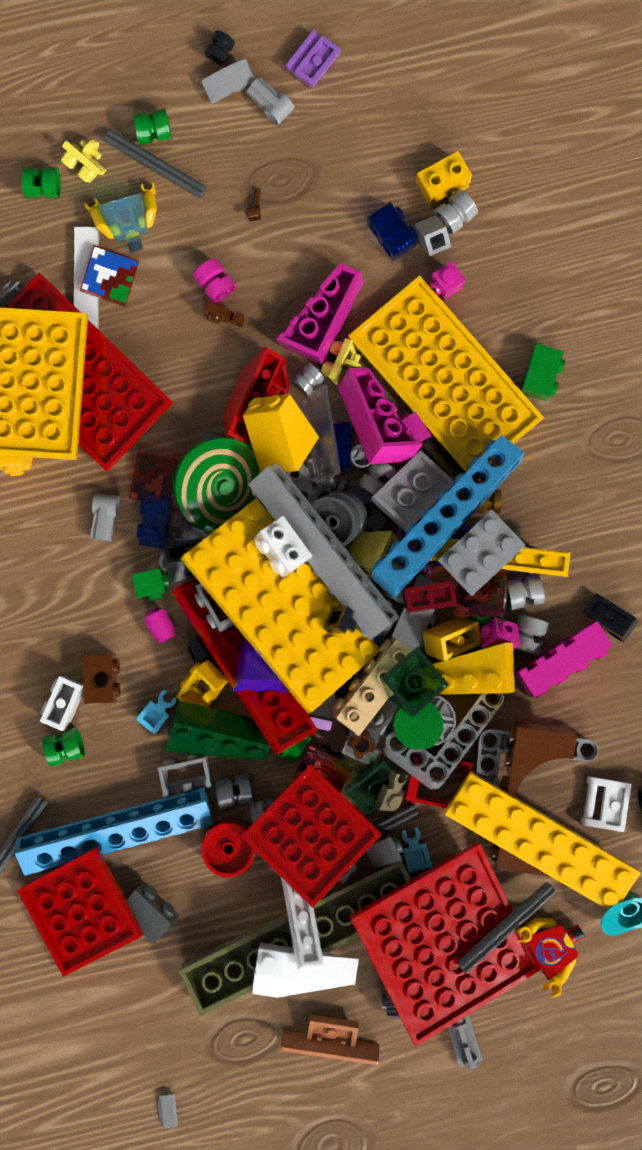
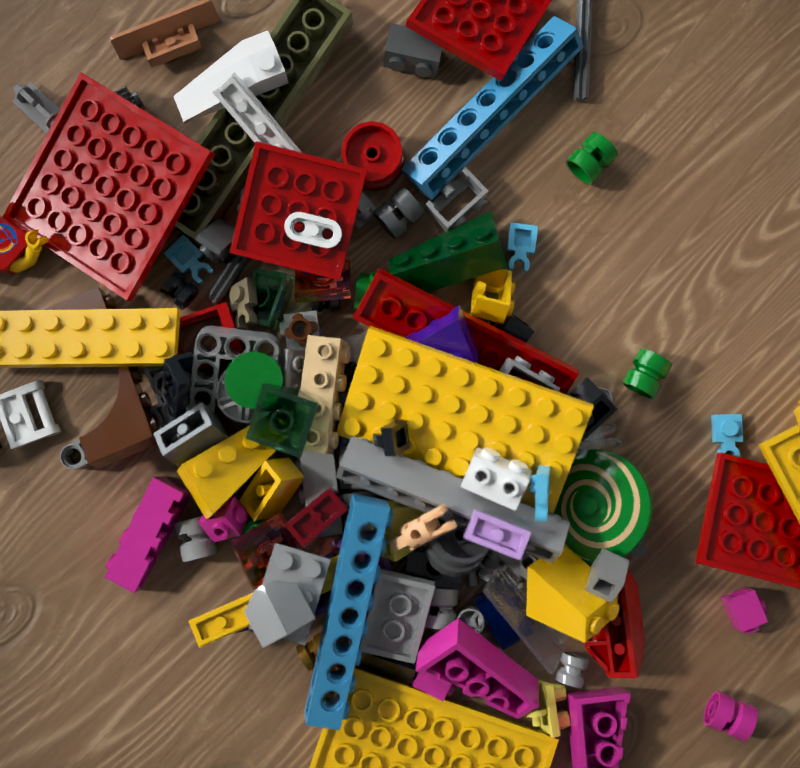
camera: 145 degrees right, 0 degrees up
(62, 703) = (618, 199): white brick -> none
(89, 482) = (727, 430): none -> medium azure plate
(92, 689) = (596, 229): reddish brown brick -> none
(105, 509) = (694, 413): light grey piece -> none
(123, 559) = (647, 372): none -> green wheel
(151, 584) = (604, 365): green brick -> none
(153, 476) = (666, 472): clear red tile -> none
(155, 521) = (638, 431): clear blue brick -> none
(156, 347) = (745, 610): none -> dark pink brick
(159, 625) = (570, 331): dark pink brick -> none
(217, 314) = (705, 683): reddish brown plate -> none
(244, 431) = (607, 575): none -> light grey brick
(254, 522) = (540, 486): none -> medium azure plate
(306, 506) = (497, 534): none -> lavender panel
(308, 812) = (313, 230): none -> white plate
(322, 723) = (353, 328): lavender tile -> none
(358, 541) = (422, 530): none -> light nougat hinge
(436, 831) = (179, 290): none -> black wheel
(477, 756) = (177, 382): none -> black bracket
(489, 711) = (190, 435): none -> dark grey brick
(497, 545) = (277, 611): none -> light grey slope
(506, 927) = (56, 235): dark grey axle -> none
(525, 591) = (223, 582): light grey wheel -> none
(611, 617) = (123, 605): black plate -> none

